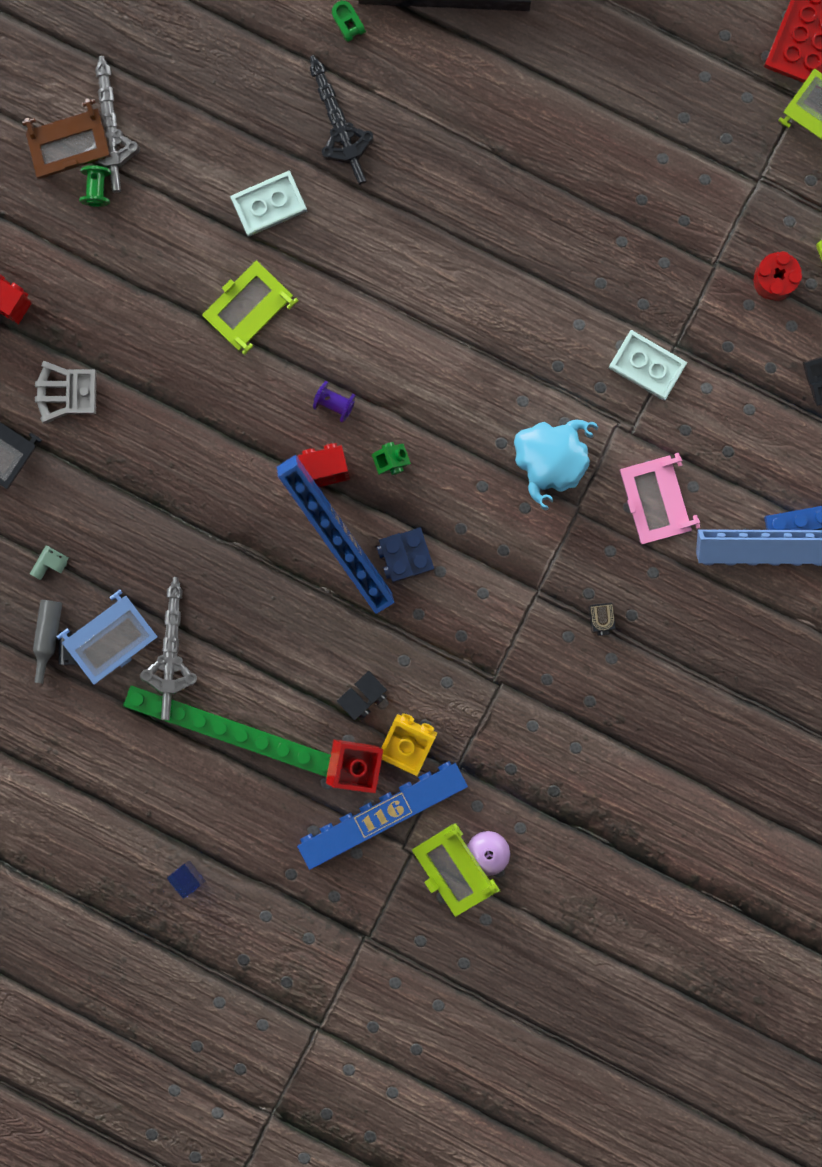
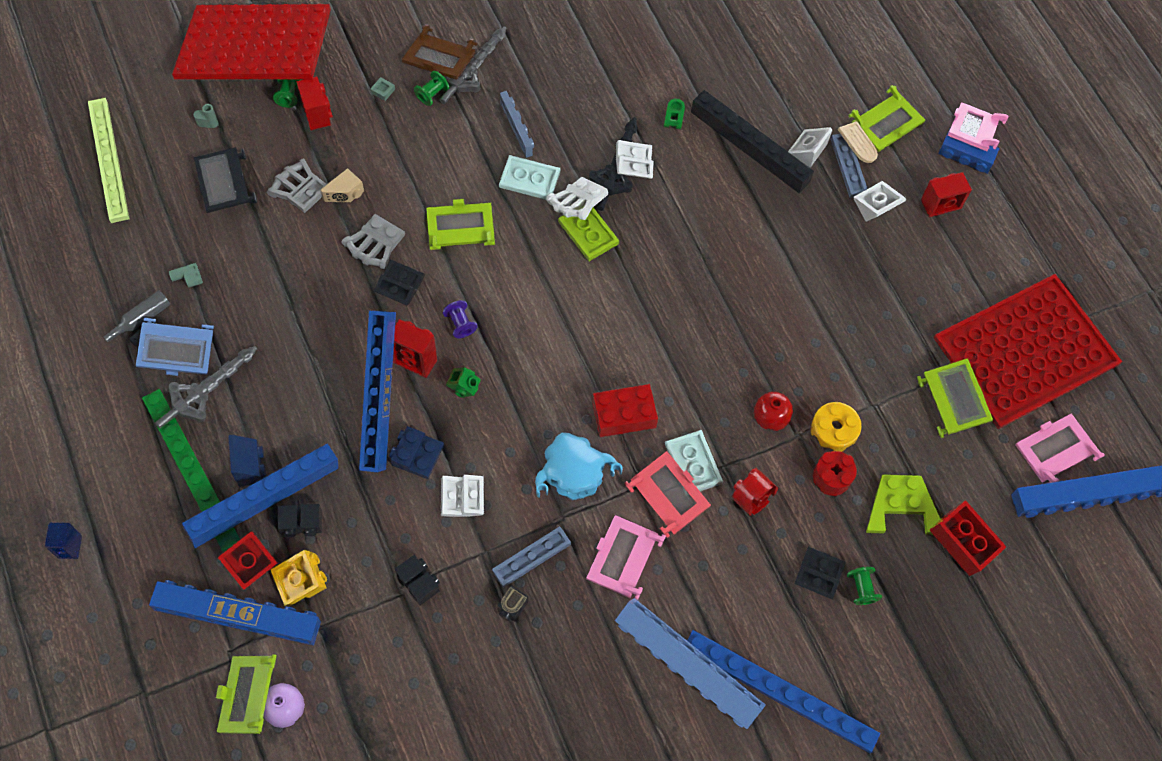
camera: 30 degrees right, 20 degrees down
(47, 224) = (382, 89): none -> sand green plate
(110, 359) = (343, 188): none -> tan slope
(186, 374) = (377, 231): none -> light grey plate
(200, 152) = (514, 118): none -> sand blue plate
(245, 410) = (399, 282): none -> black slope
(271, 685) = (246, 460): none -> dark blue slope
(313, 703) = (260, 495): none -> blue brick
(330, 178) = (583, 191): none -> white plate
(351, 104) = (634, 159): none -> white slope
(371, 215) = (589, 235): none -> lime plate
(477, 560) = (462, 496): none -> white slope
(517, 663) = (417, 579): none -> black piece
(552, 367) = (624, 410): none -> red brick
(582, 564) = (531, 556): none -> sand blue plate
(651, 411) = (670, 493): none -> coral piece
(673, 266) = (773, 411): none -> red cylinder
(725, 352) = (754, 492): none -> red brick
(734, 240) = (828, 435): none -> yellow plate

